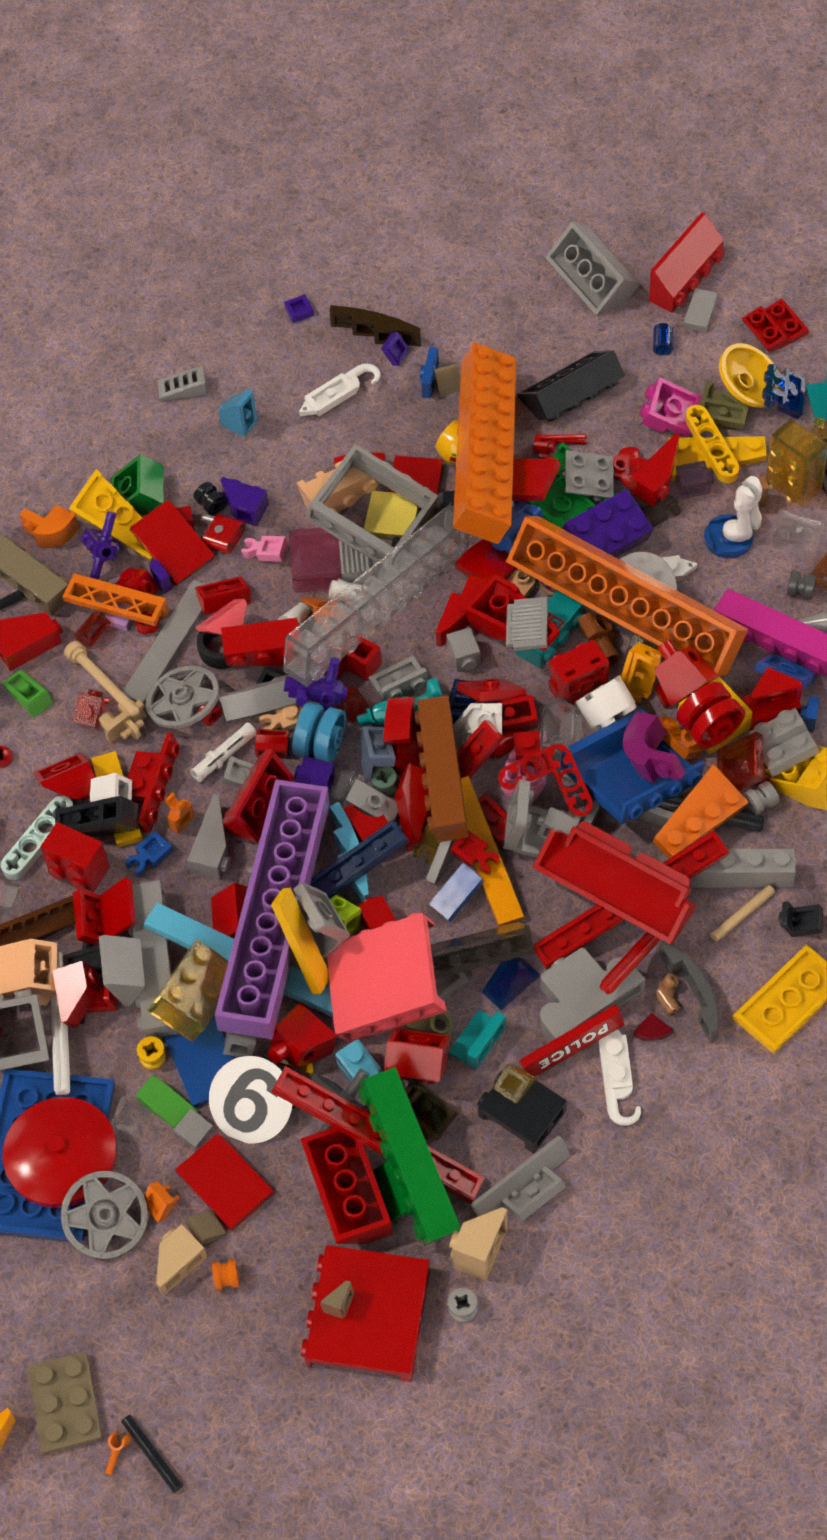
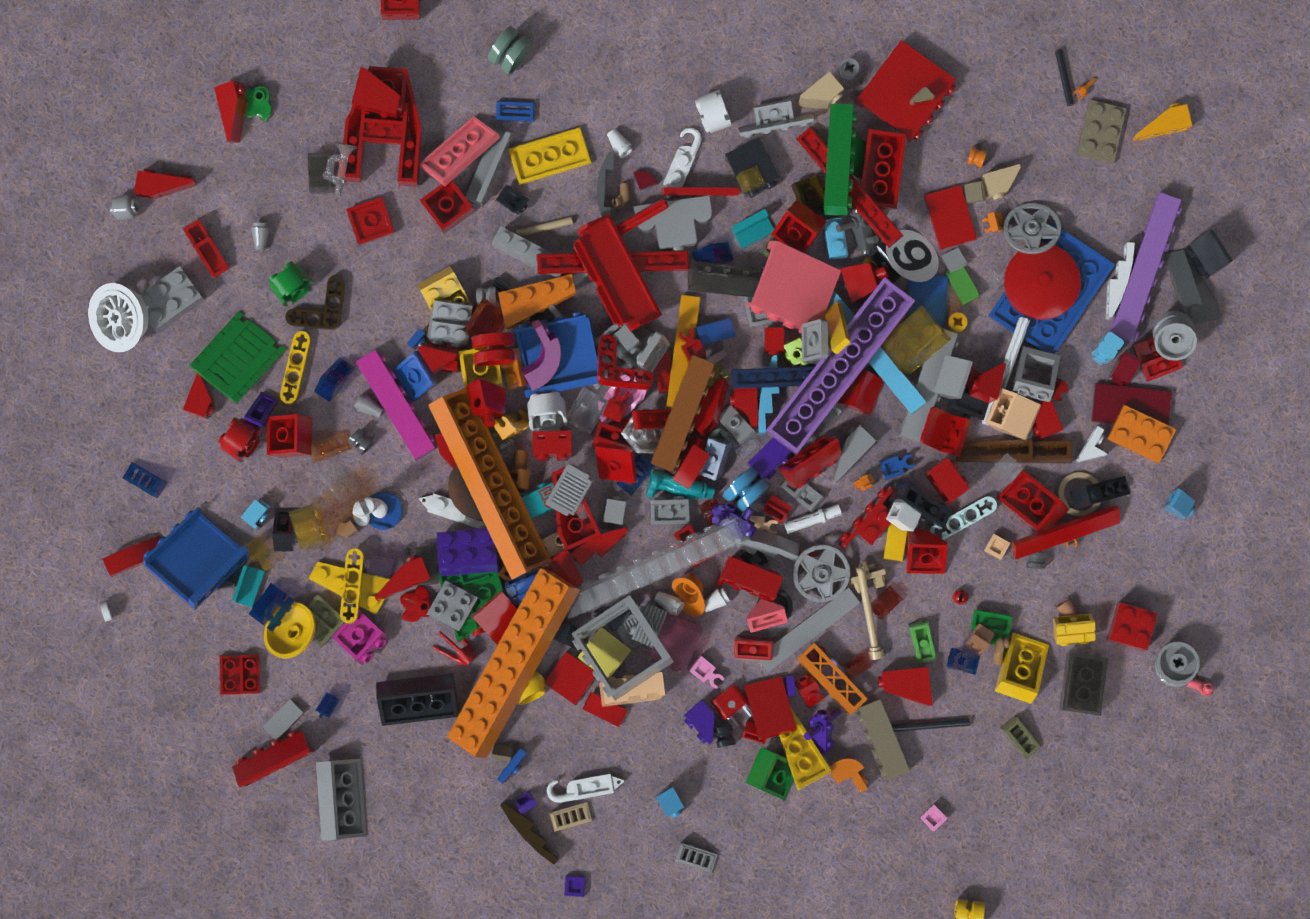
camera: 160 degrees left, 25 degrees up
(350, 349) = (555, 821): none -> tan slope
(612, 1147) = (714, 112): none -> white brick
(712, 1054) = (619, 144): none -> white cone

